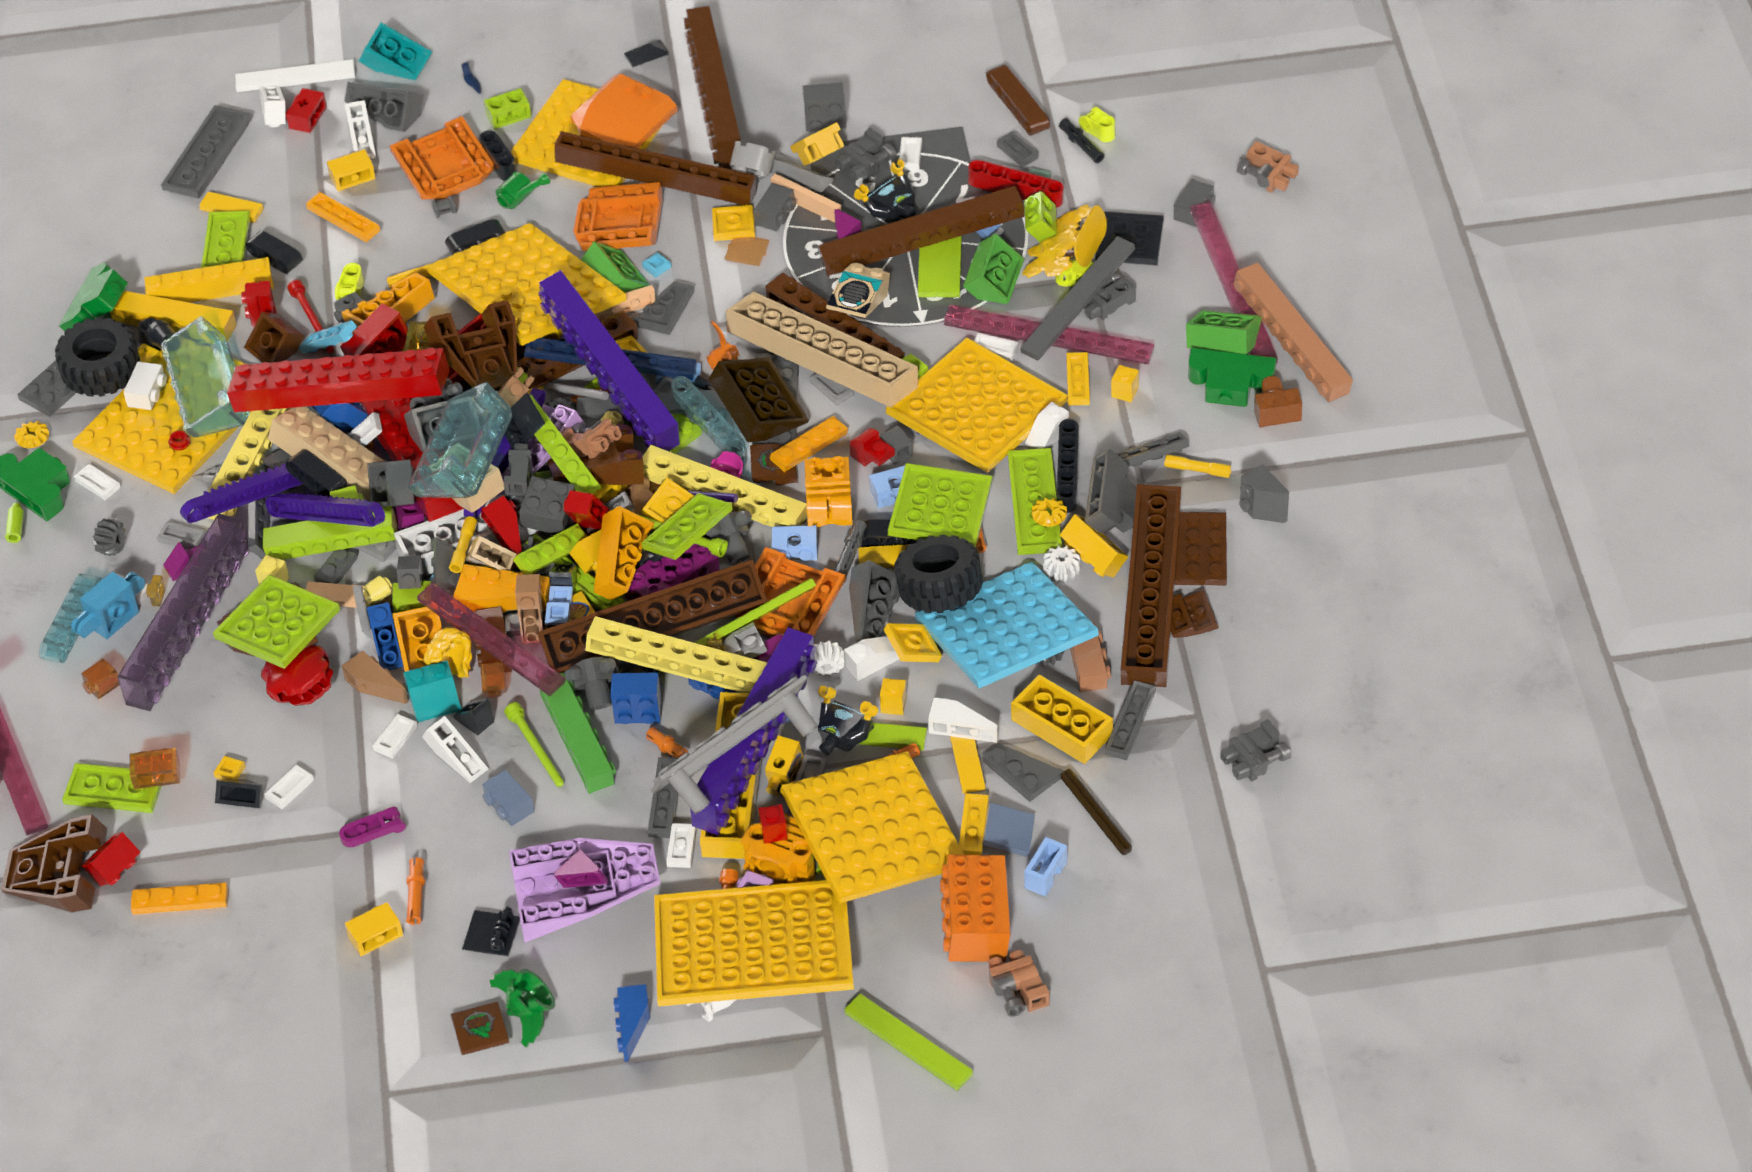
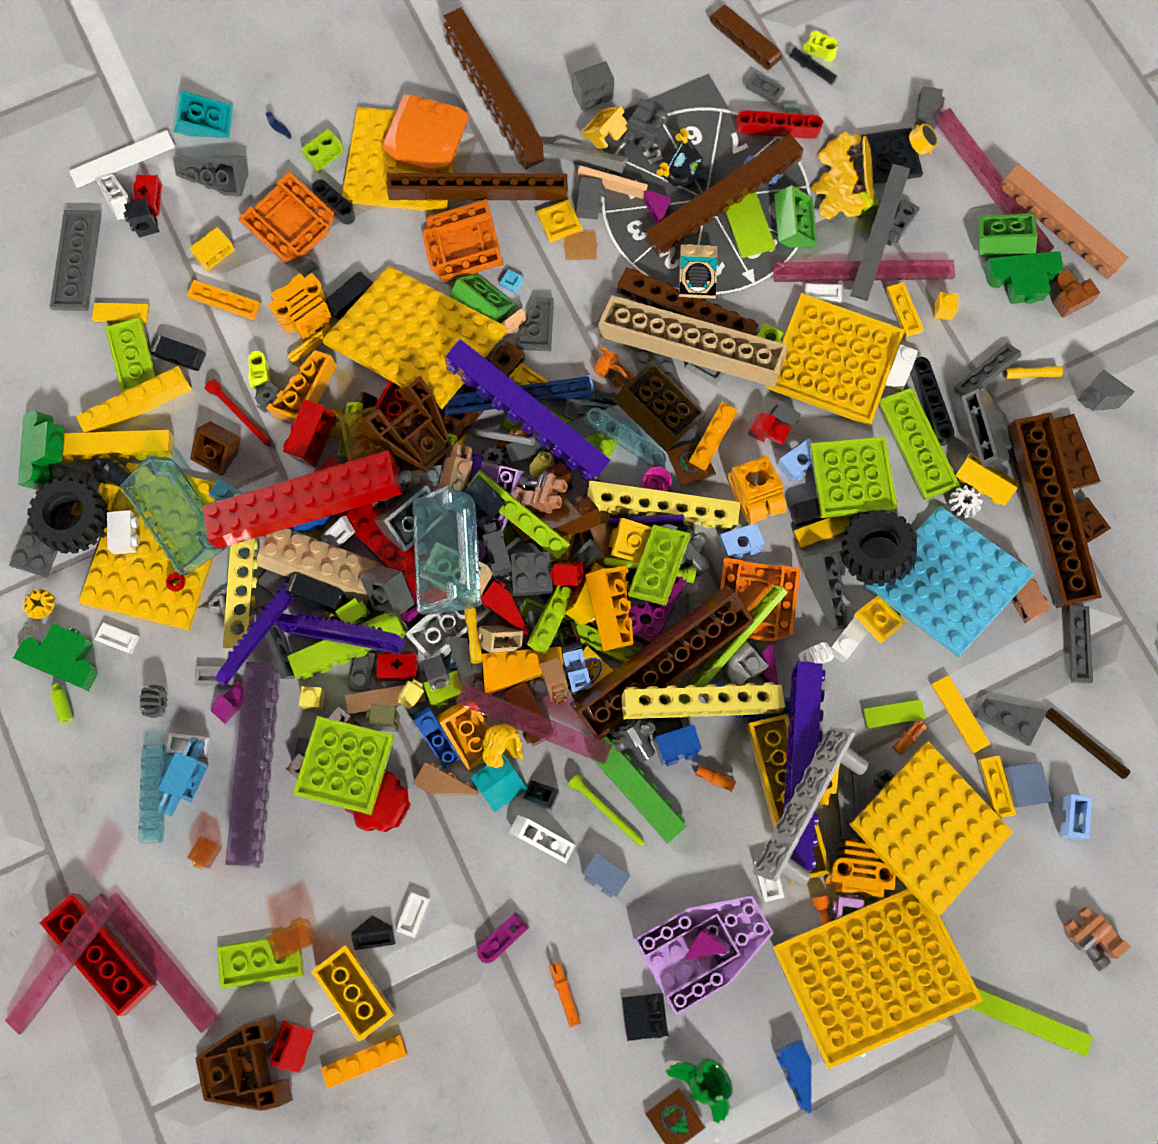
camera: 20 degrees left, 25 degrees up
(156, 590) = (216, 743): clear yellow plate -> none
(196, 829) = (353, 992): none -> yellow brick
(229, 769) = (354, 911): yellow tile -> none
(258, 299) = (188, 415): red brick -> none
(290, 126) = (141, 218): none -> black brick
(327, 337) = (266, 440): medium azure plate -> none
(343, 595) = (383, 718): none -> olive brick
(360, 128) = (204, 205): white slope -> none
(369, 564) = (408, 670): none -> red brick
(373, 929) = (545, 1047): yellow brick -> none
(395, 736) = (482, 834): white tile -> none
(418, 234) = (301, 306): none -> light orange piece
(493, 679) = (547, 756): clear orange brick -> none
(517, 189) = (364, 233): green piece -> none
(646, 53) = (416, 62): black slope -> none
(662, 805) = (735, 833): dark grey plate -> none
(716, 643) = (725, 675): clear yellow plate -> none
(752, 159) = (558, 159): light grey brick -> none
(772, 823) = (859, 863): red brick -> none
(843, 725) = (864, 721): black torso -> none
(852, 543) = (791, 538): dark grey pin -> none
(893, 696) = (884, 677): yellow brick -> none
(911, 153) = (678, 113): white tile -> none
(957, 720) = (947, 689): white slope -> none
(975, 908) = (1041, 881): orange brick -> none
(1040, 216) = (814, 154): lime brick -> none
(1042, 516) = (938, 463): yellow gear -> none
(1061, 719) = (1030, 663): yellow brick -> none
(1171, 227) = (923, 139): none -> yellow piece
(1268, 167) = (978, 57): nougat hips -> none

